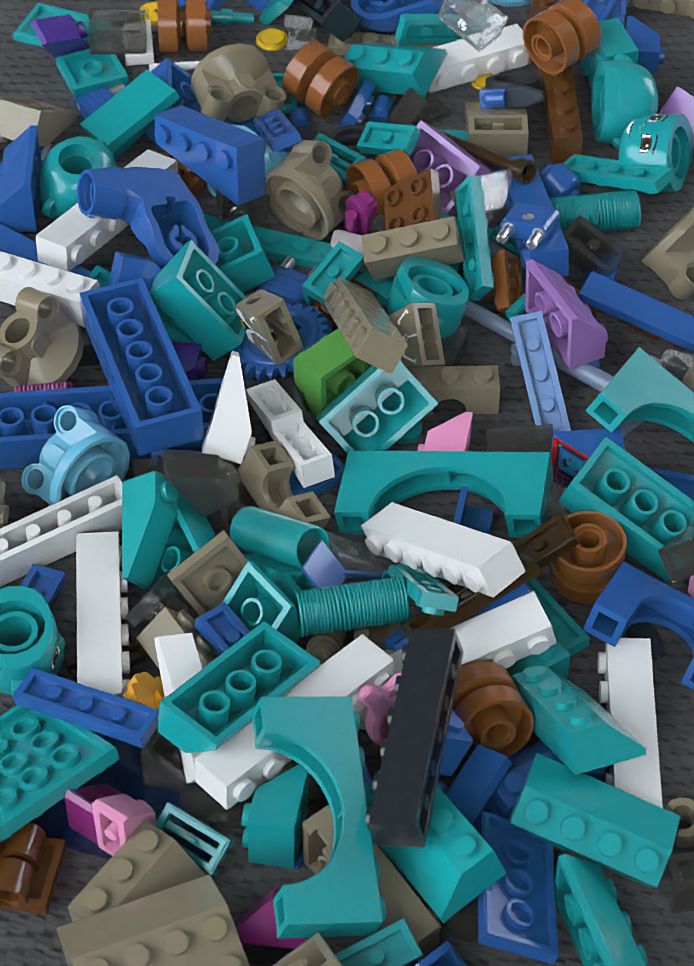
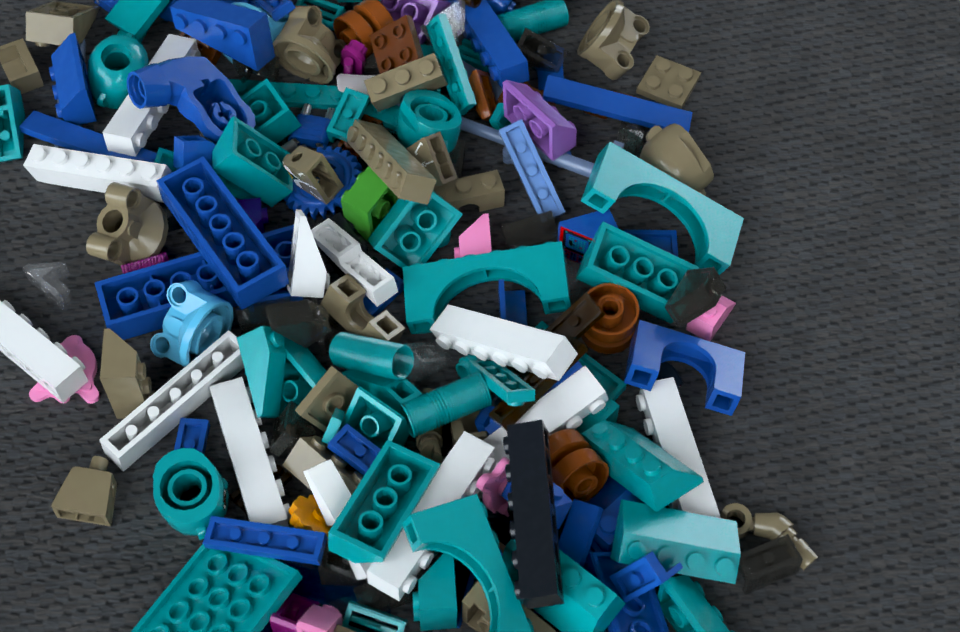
camera: 15 degrees left, 10 degrees up
(212, 598) = (334, 425): none -> teal tile
(325, 570) = (417, 378): blue piece -> none
(528, 223) = (491, 44): blue piece -> none
(536, 844) = (642, 576): none -> blue panel

